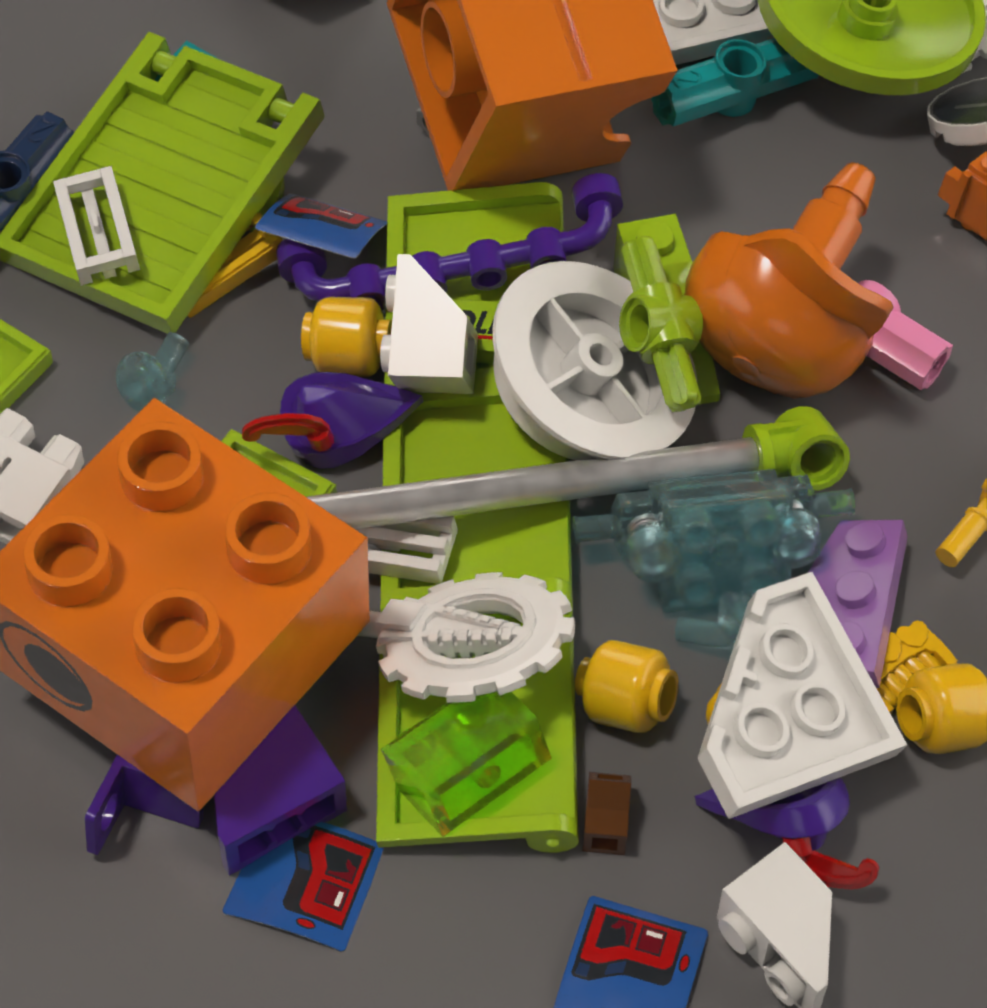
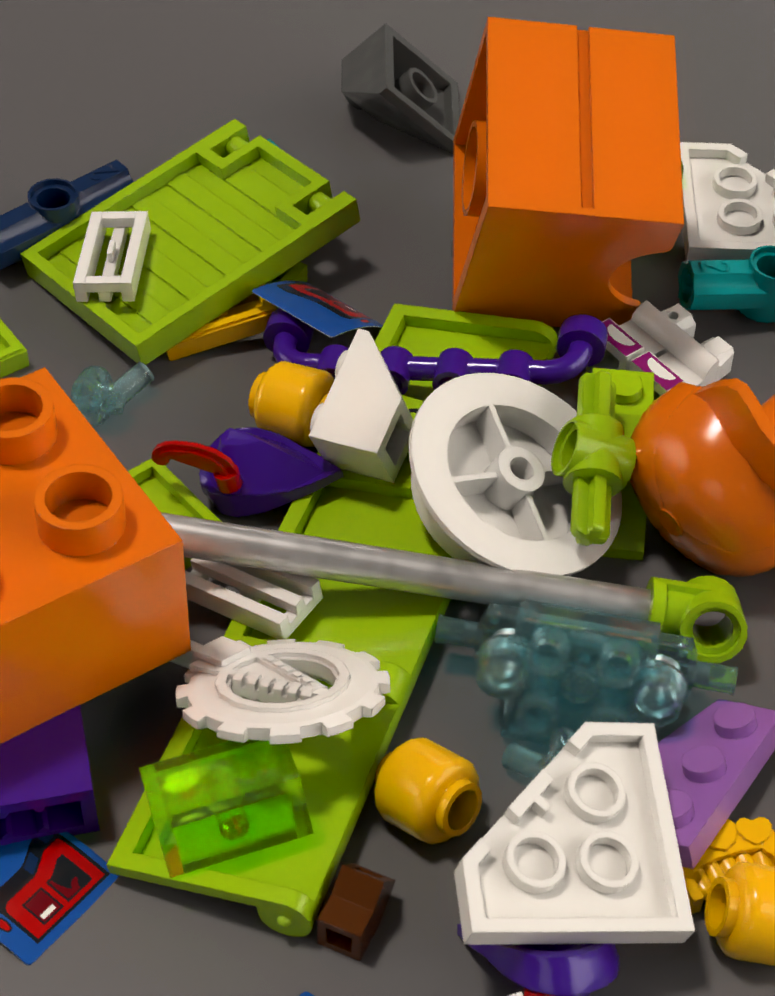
camera: 20 degrees right, 10 degrees down
(661, 182) = (665, 346): none -> white hips

